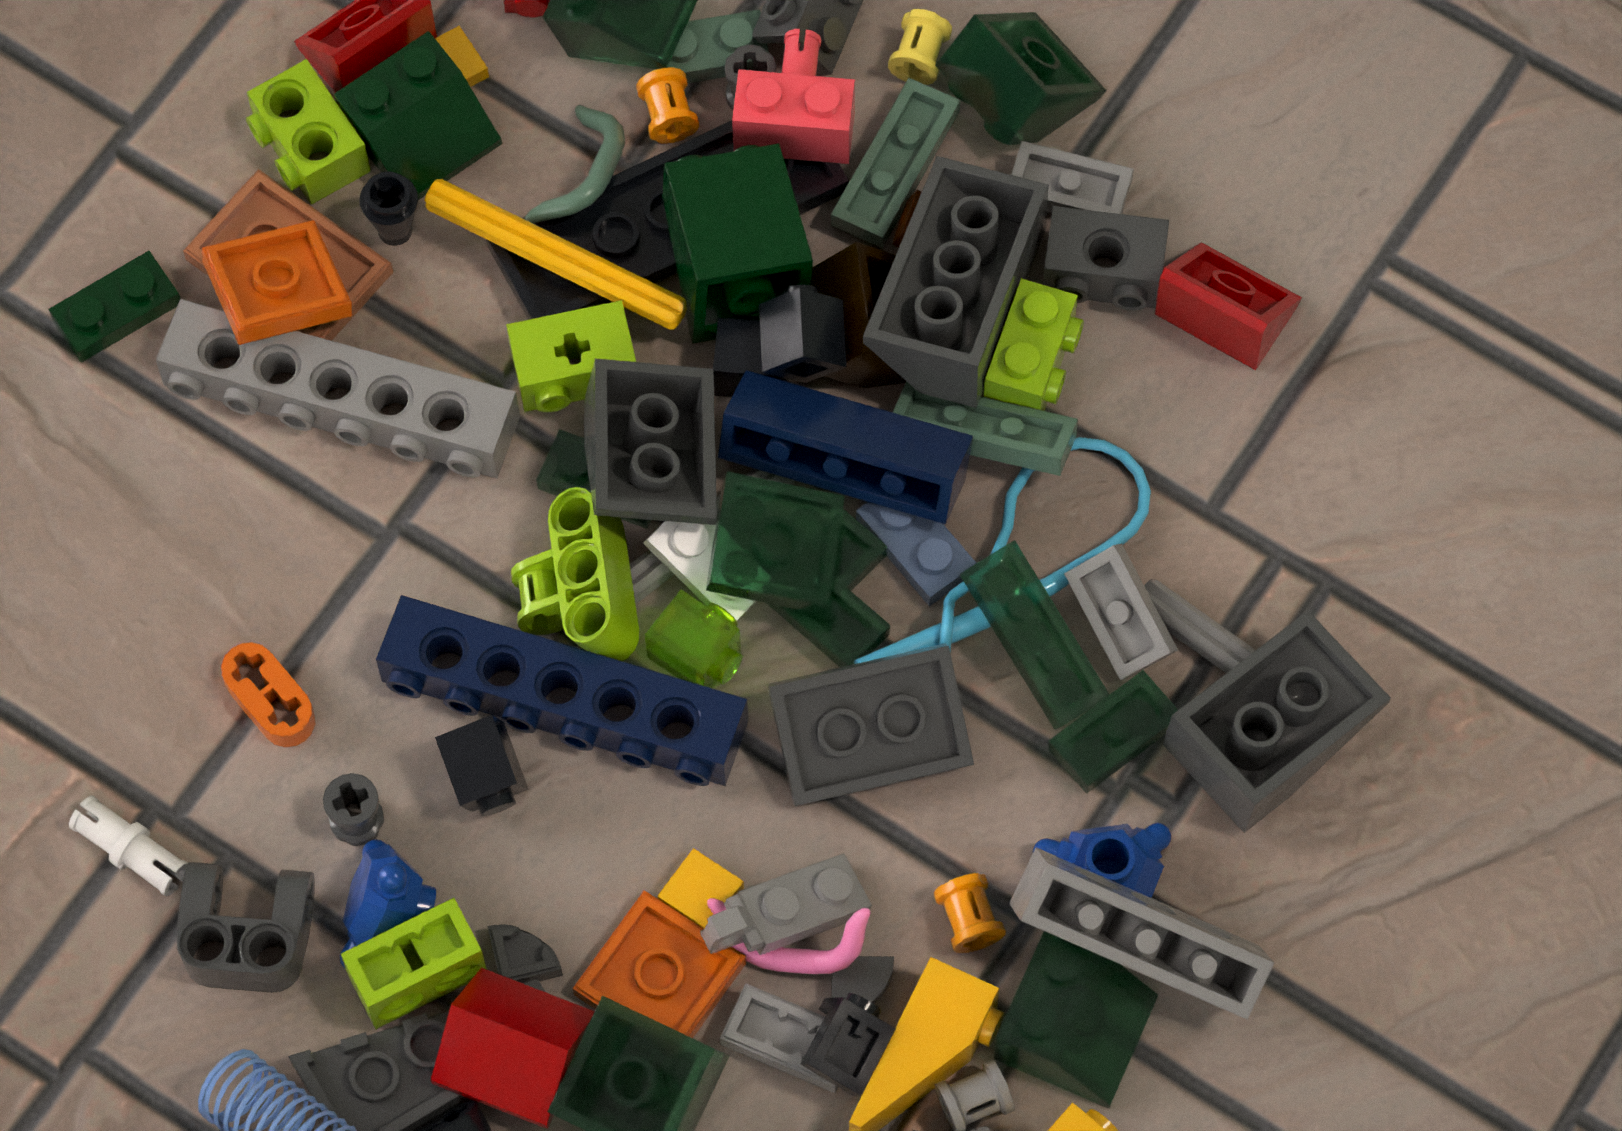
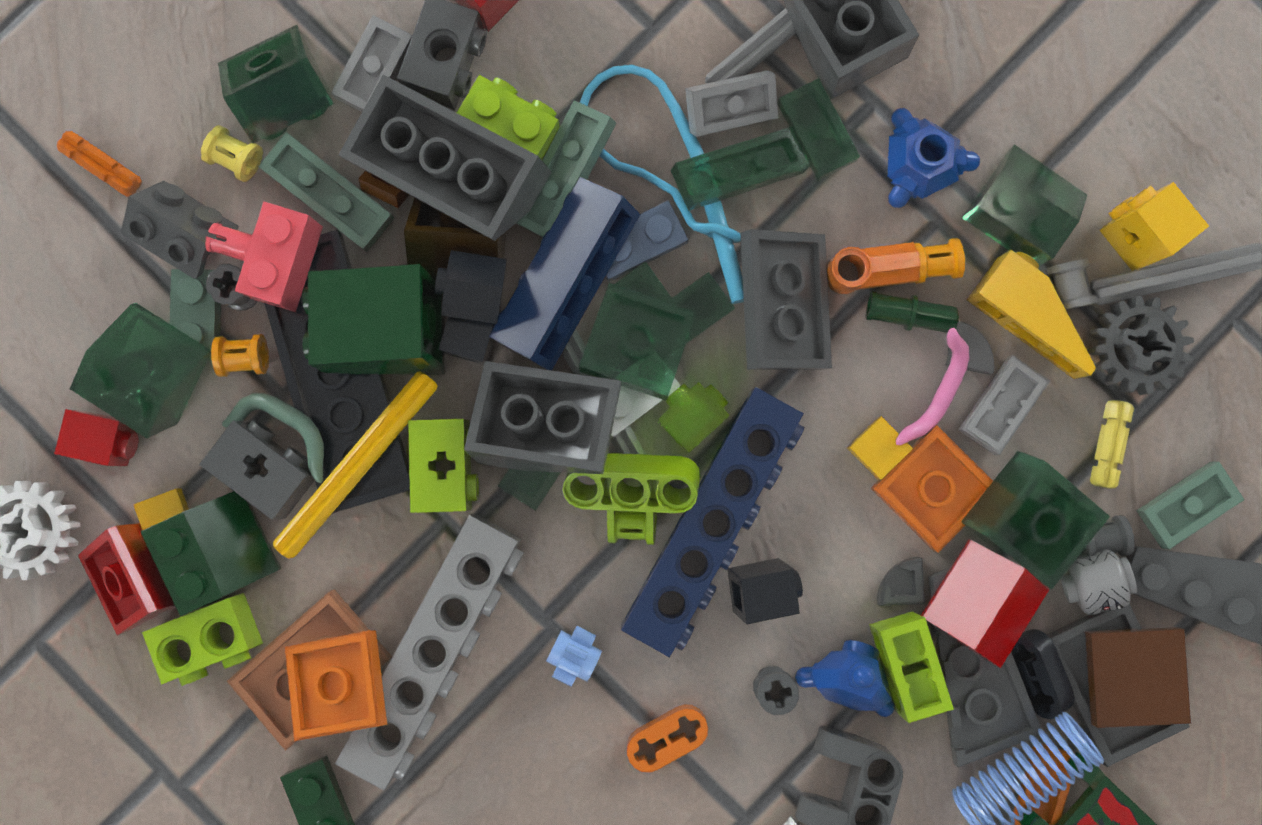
camera: 80 degrees left, 20 degrees up
(357, 555) = (574, 656): none -> light blue gear
(390, 206) = (277, 590): black cone -> none
(530, 150) = (235, 464): none -> dark grey brick
(788, 908) = (913, 388): light grey hinge -> none
(848, 1042) = (1031, 363): black bracket -> none
(892, 895) = (911, 312): none -> dark green axle
(940, 832) = (875, 267): none -> orange piece
(1141, 933) = (998, 140): light grey brick -> none

